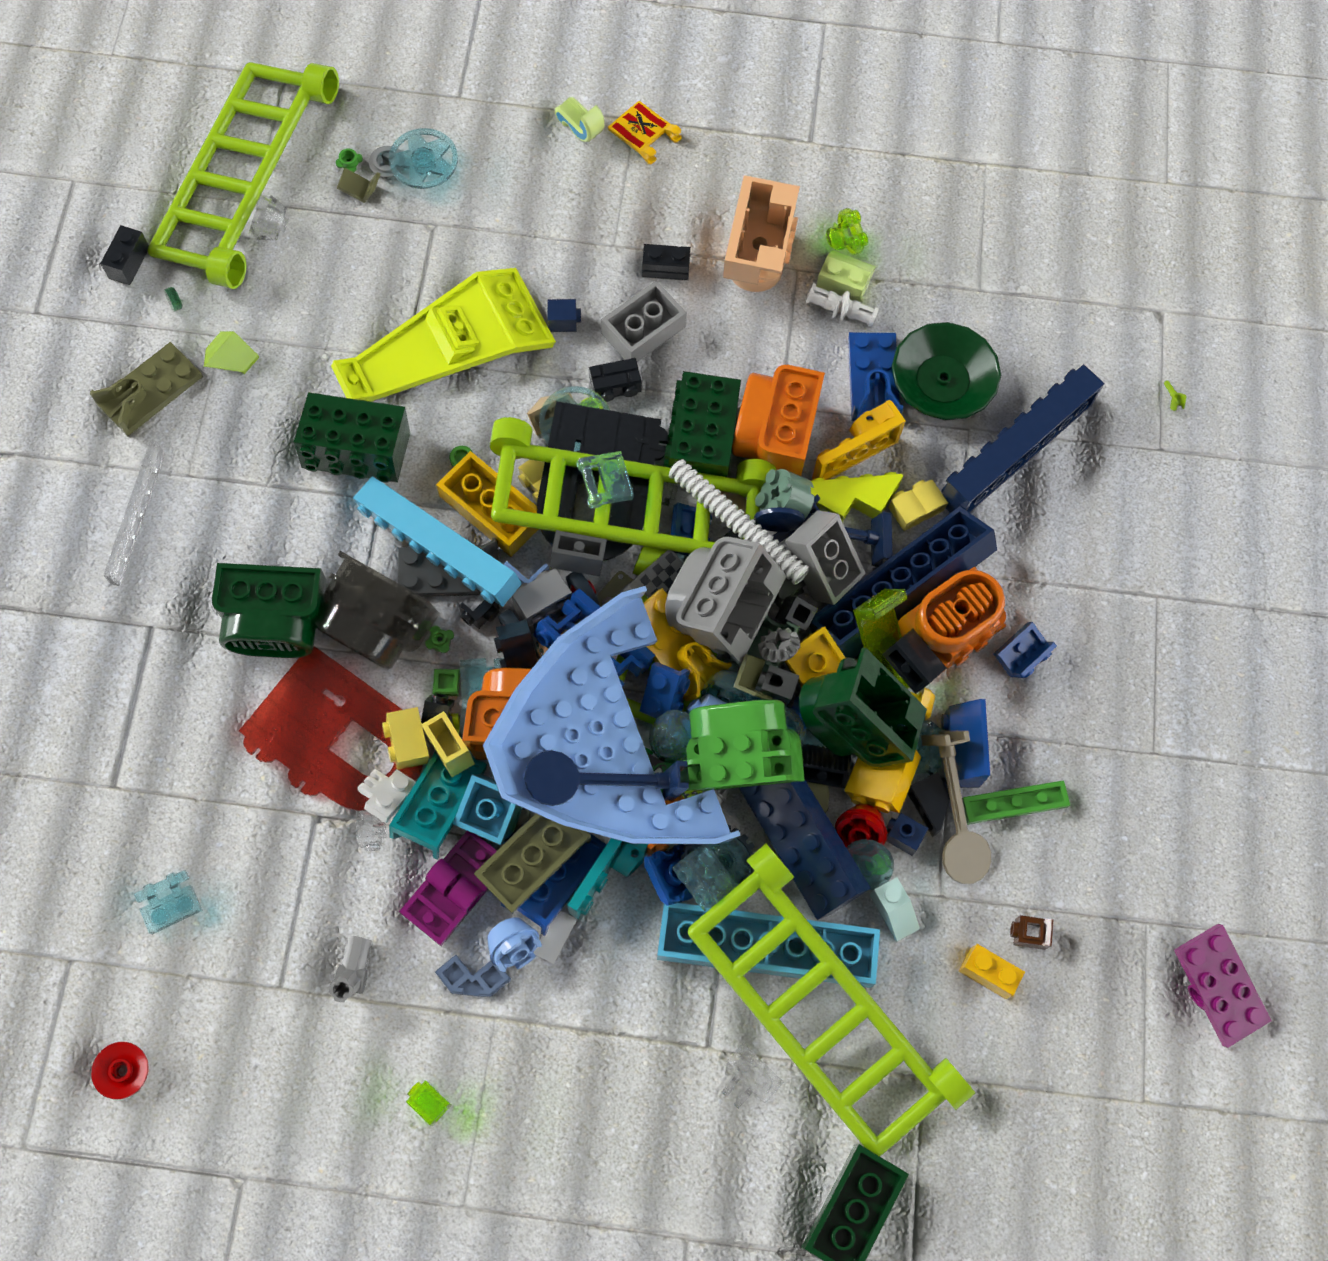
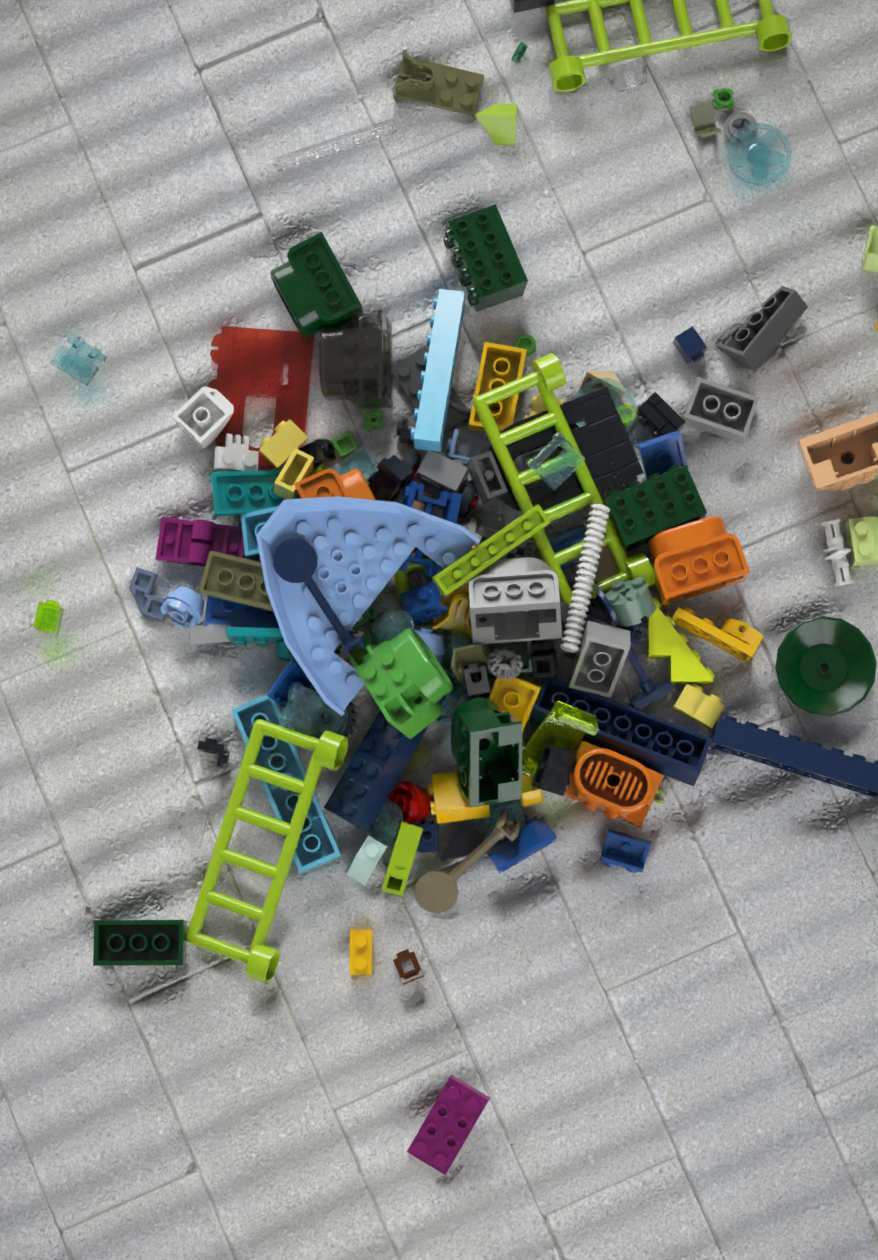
camera: 70 degrees right, 10 degrees up
(322, 802) = (204, 416): none -> white slope
(352, 974) = (101, 512): light grey piece -> none
(464, 328) = (650, 296): neon yellow wing -> none
(591, 247) = (764, 329): none -> dark grey wedge
(654, 394) = (662, 453): none -> blue plate
(659, 587) = (491, 550): none -> lime plate
(665, 262) = (788, 395): black brick -> none
(680, 1003) = (212, 746): none -> black bracket
(824, 767) = (438, 749): black brick -> none
(871, 371) = (787, 610): blue plate -> none
(919, 870) = (402, 859): none -> lime slope
(1015, 802) = (500, 906): bright green plate -> none

